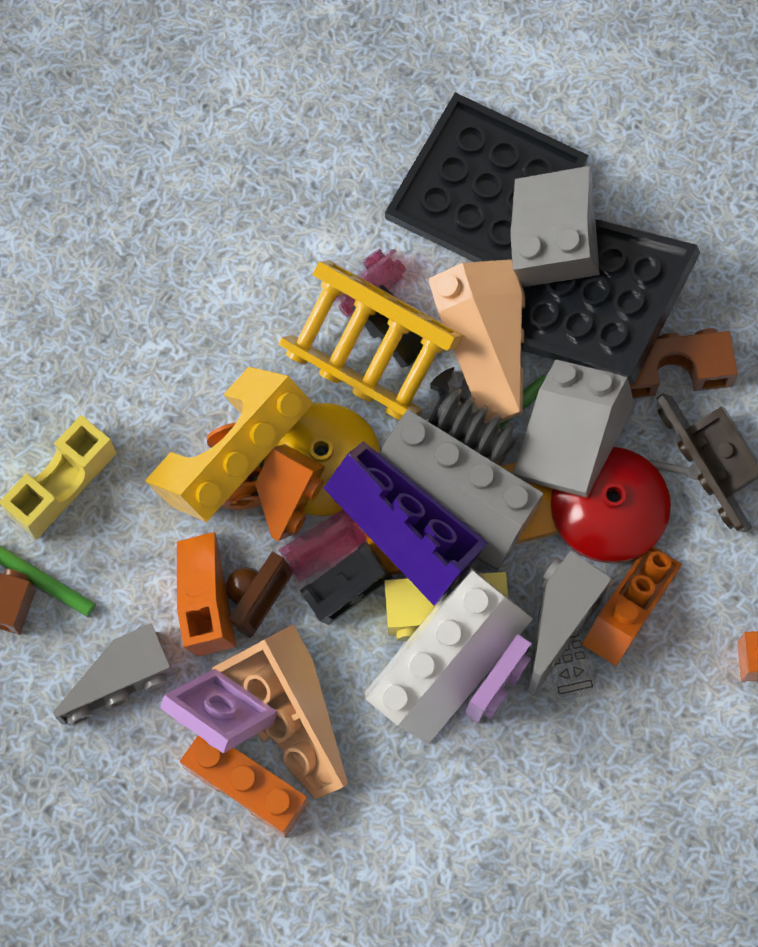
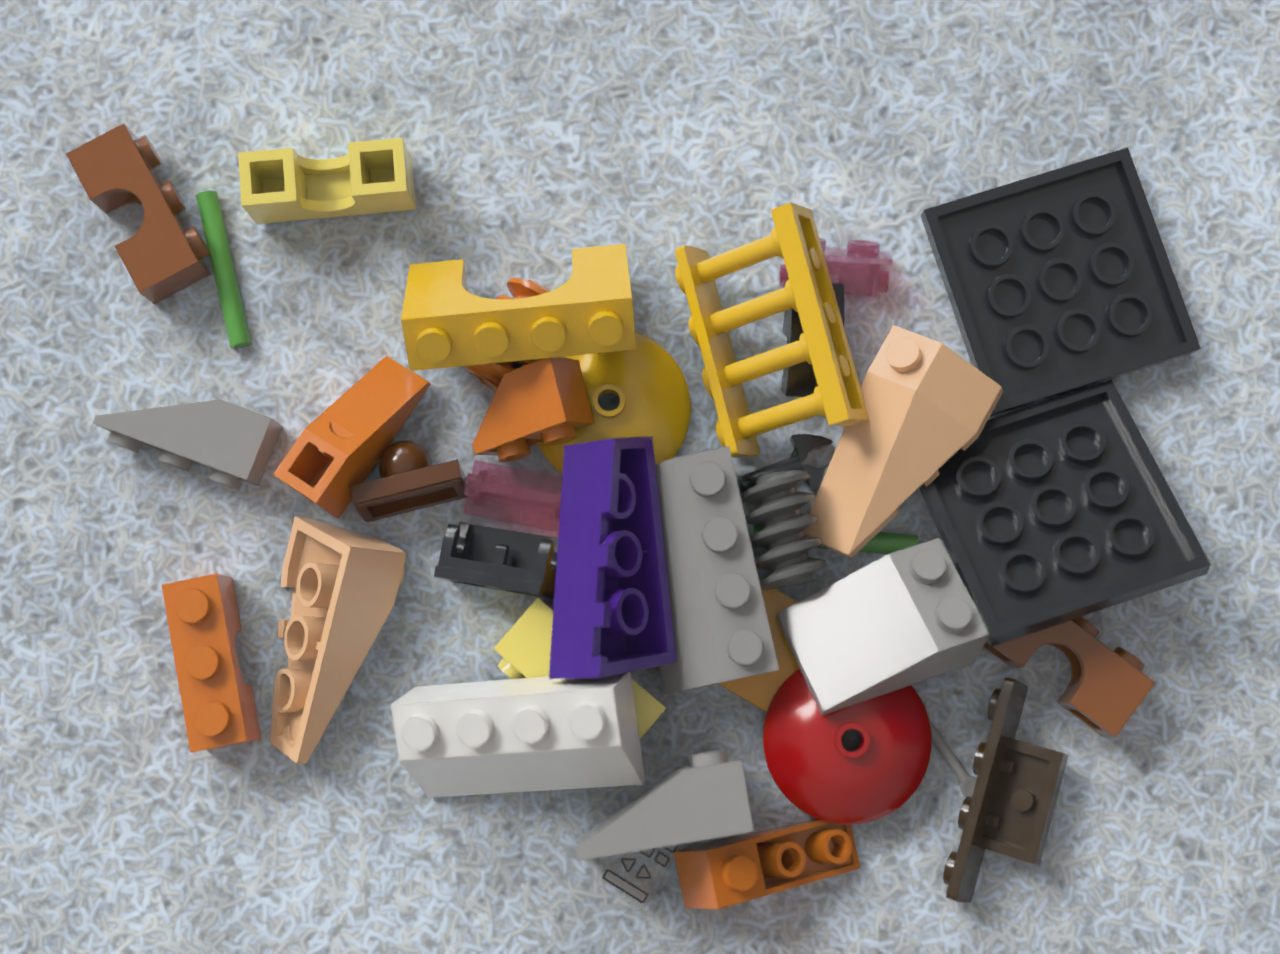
camera: 45 degrees right, 10 degrees up
(218, 710) = (246, 571): lavender plate -> none
(508, 669) = (526, 816): lavender plate -> none
(554, 227) = (1081, 394): light grey slope -> none

